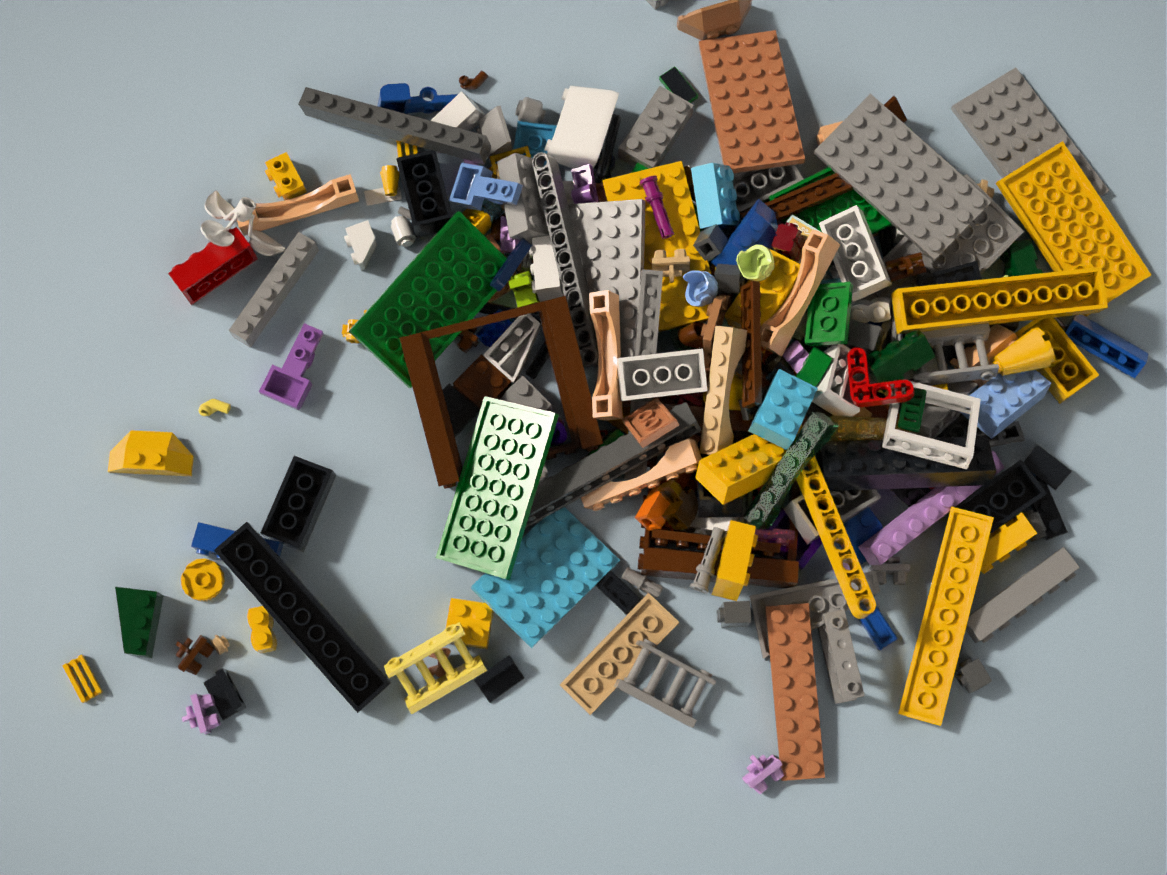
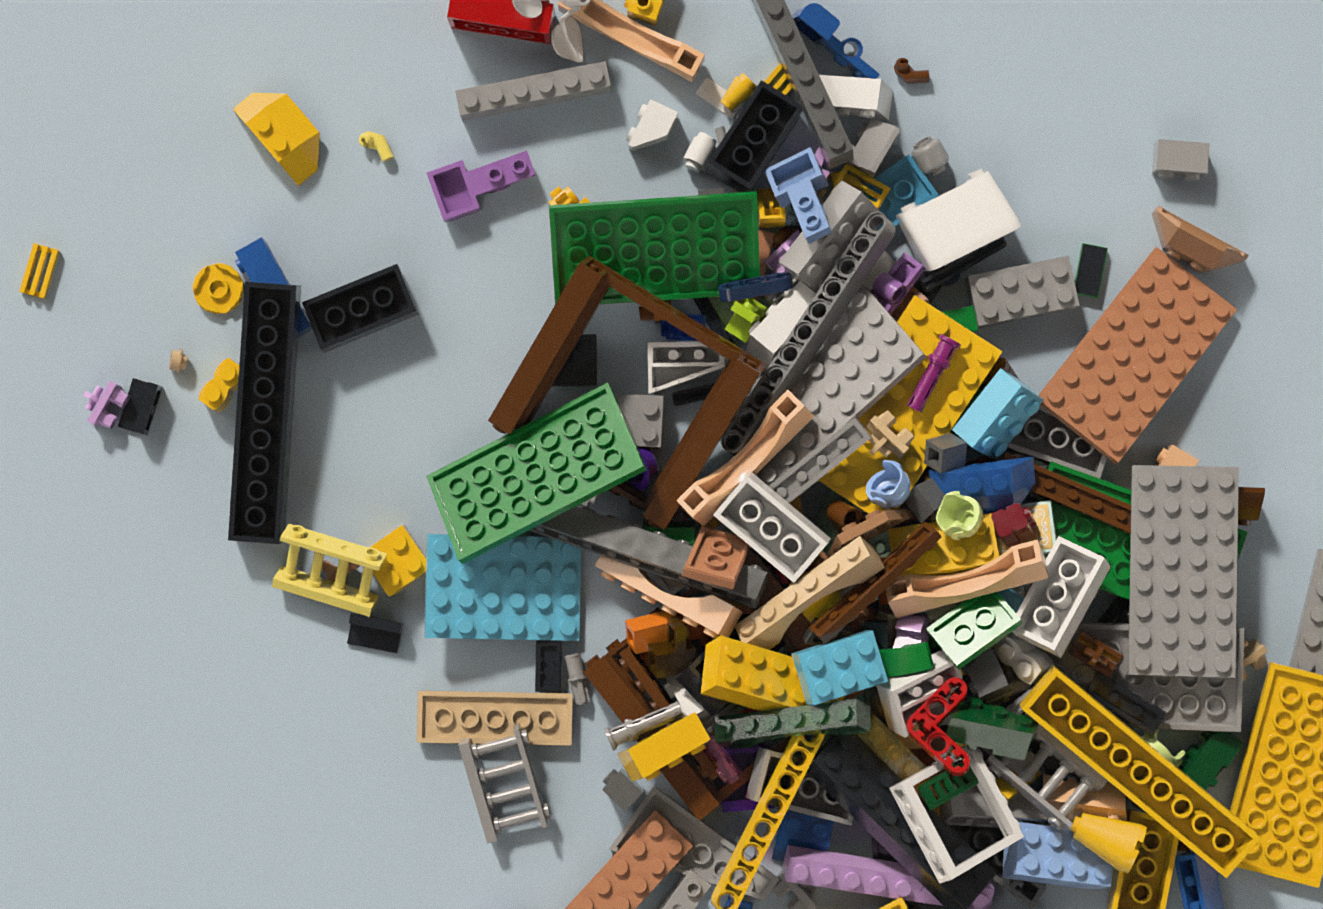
camera: 50 degrees right, 10 degrees up
(138, 619) = (131, 269): dark green wedge -> none
(188, 662) = (137, 348): reddish brown hips -> none
(482, 380) = (623, 364): reddish brown brick -> none

